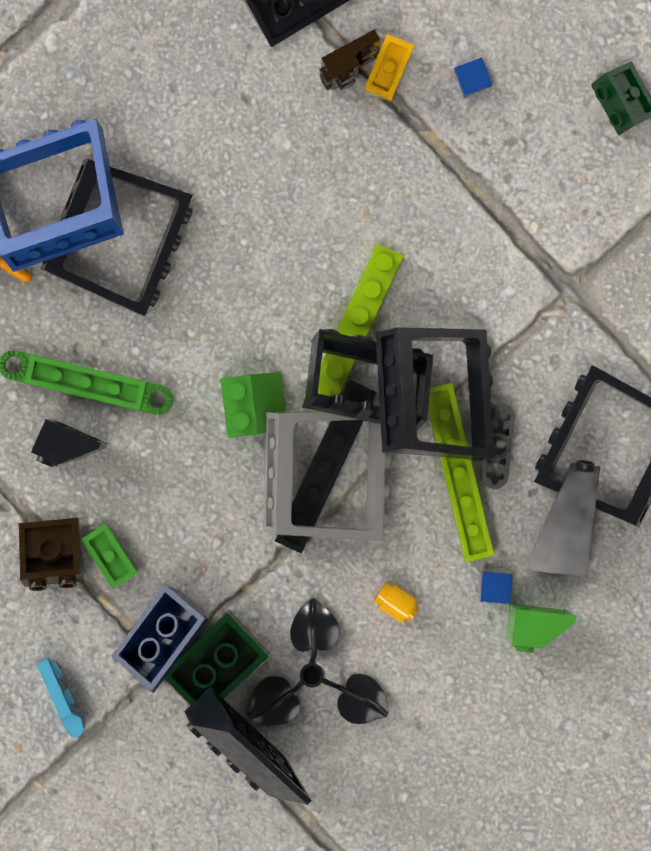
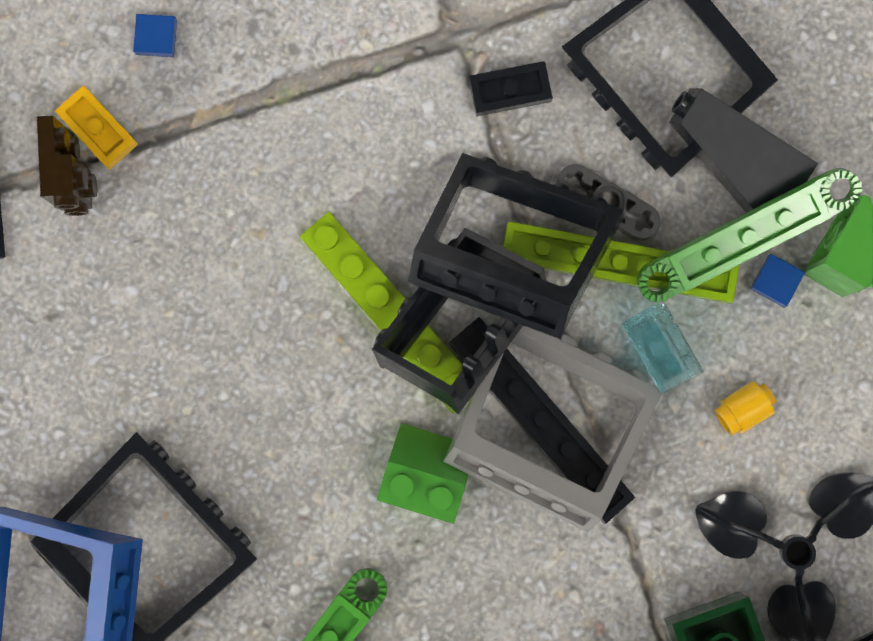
camera: 65 degrees left, 5 degrees down
(411, 527) = (662, 348): none -> clear light blue brick
(514, 551) = (749, 235): none -> bright green plate
(547, 342) = (510, 88): none -> black plate

